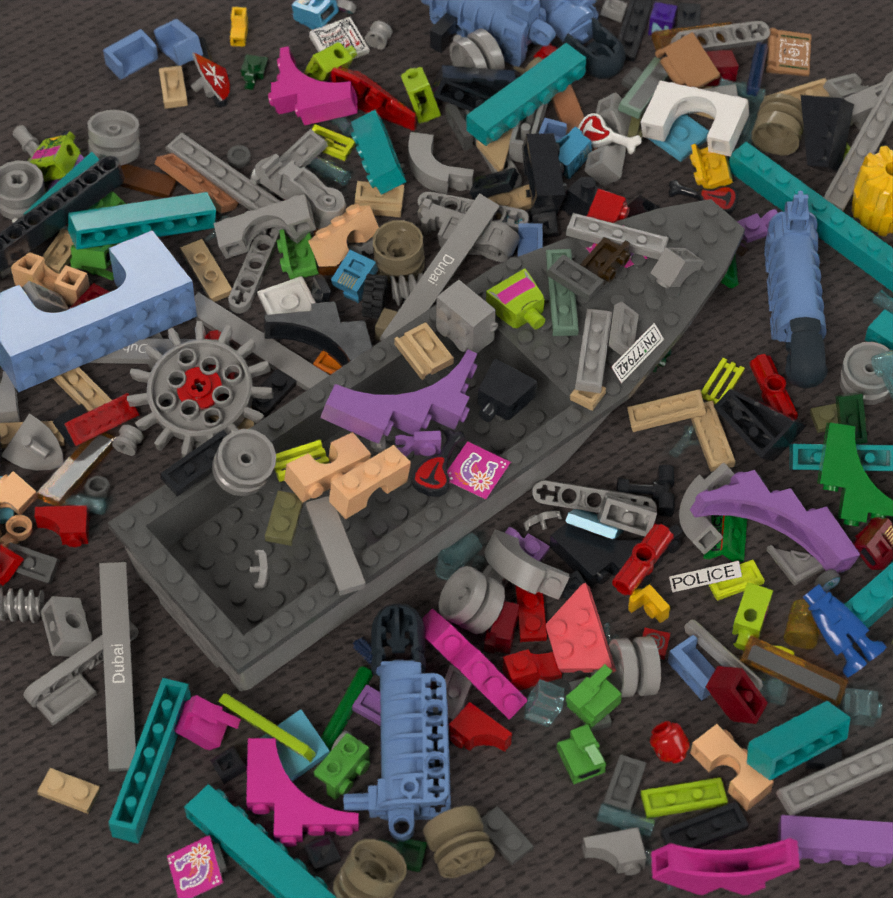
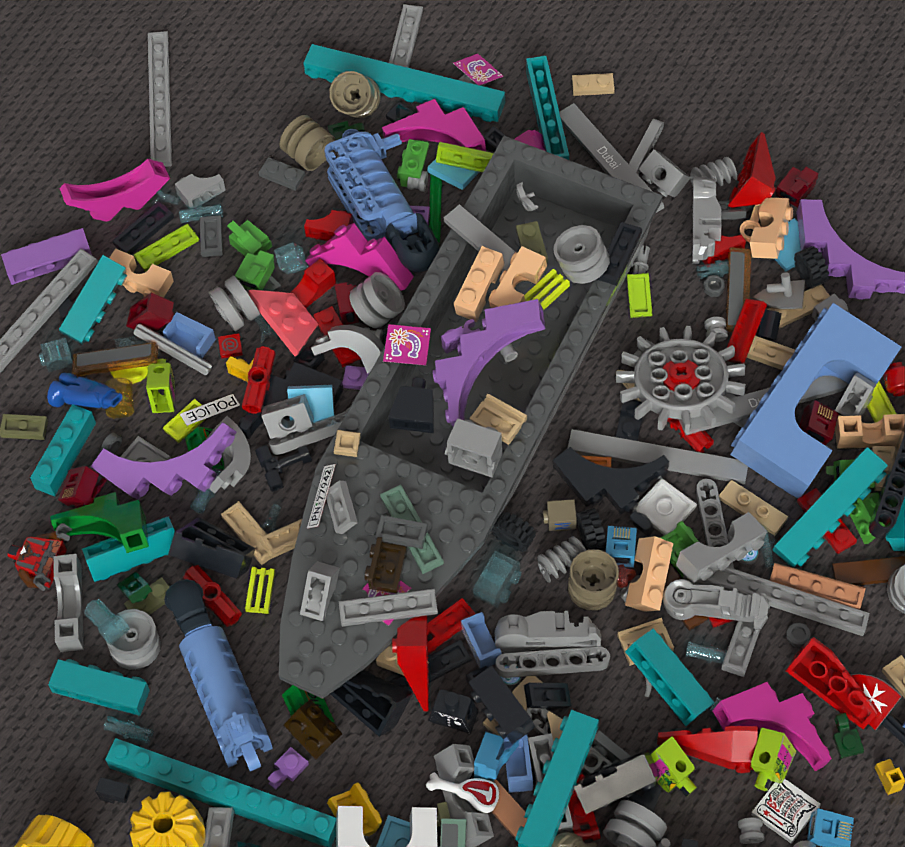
camera: 160 degrees right, 5 degrees up
(62, 538) = (705, 218): none -> light grey piece
(66, 699) = (632, 137): light grey tile -> none
(243, 108) = (828, 678): none -> red wedge
(334, 149) = (724, 678): neon yellow tile -> none
(367, 249) = (624, 577): none -> clear red tile
(430, 171) = (617, 689): light grey arch -> none
(431, 474) = (437, 321): black piece -> none
(445, 263) = (542, 566): light grey tile -> none
(518, 301) = (442, 495): lime torso -> none
(593, 351) = (358, 479): light grey tile -> none
(669, 742) = (188, 271): red head -> none
(724, 196) = (337, 781): black piece -> none

